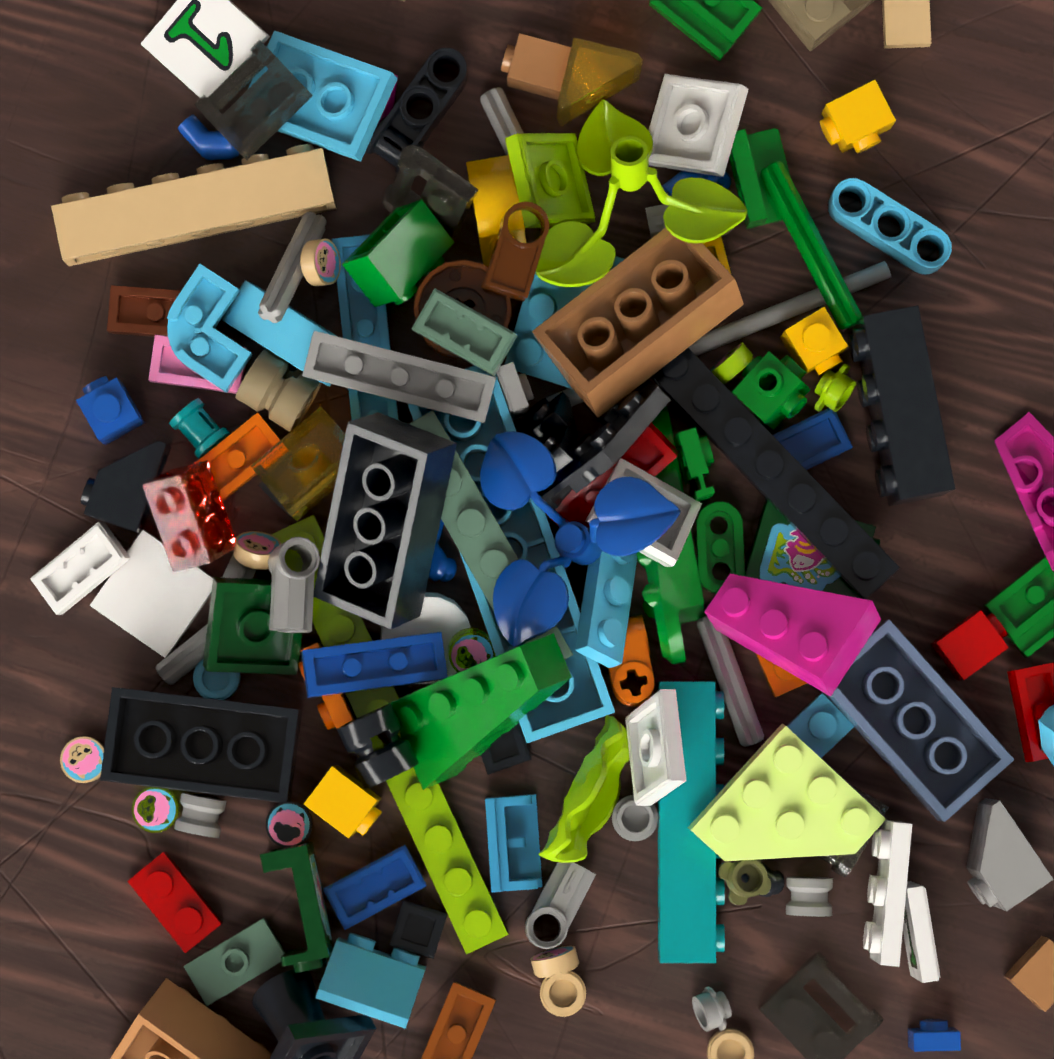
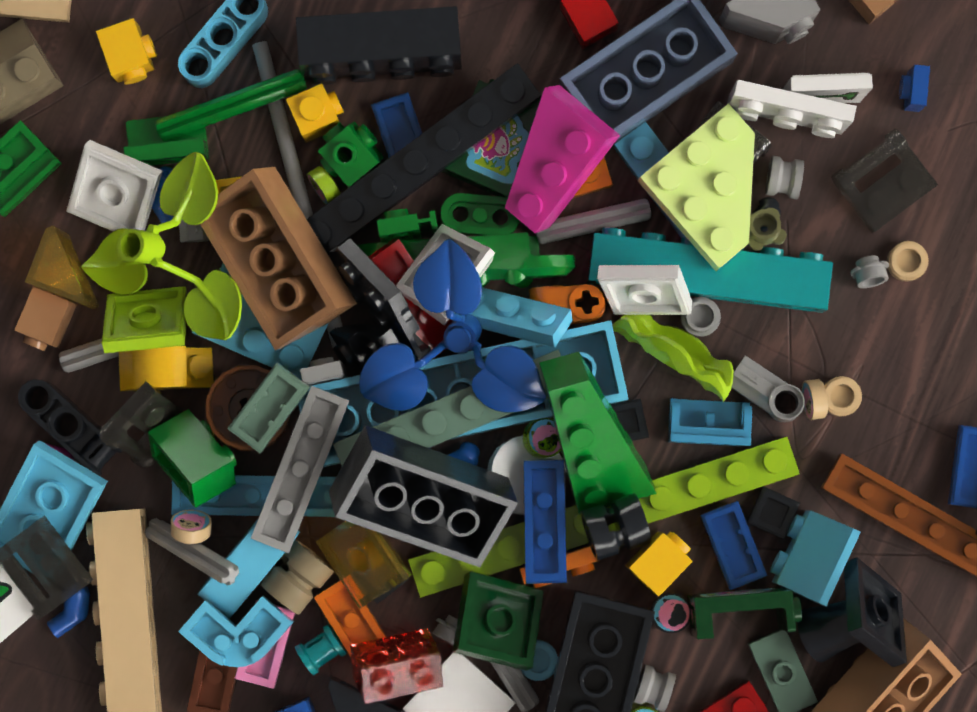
camera: 75 degrees left, 0 degrees up
(254, 548) = (433, 611): tan tile -> none
(290, 590) = (473, 585): light grey piece -> none
(514, 262) = (214, 357): reddish brown piece -> none
(834, 389) = (357, 100): lime plate -> none

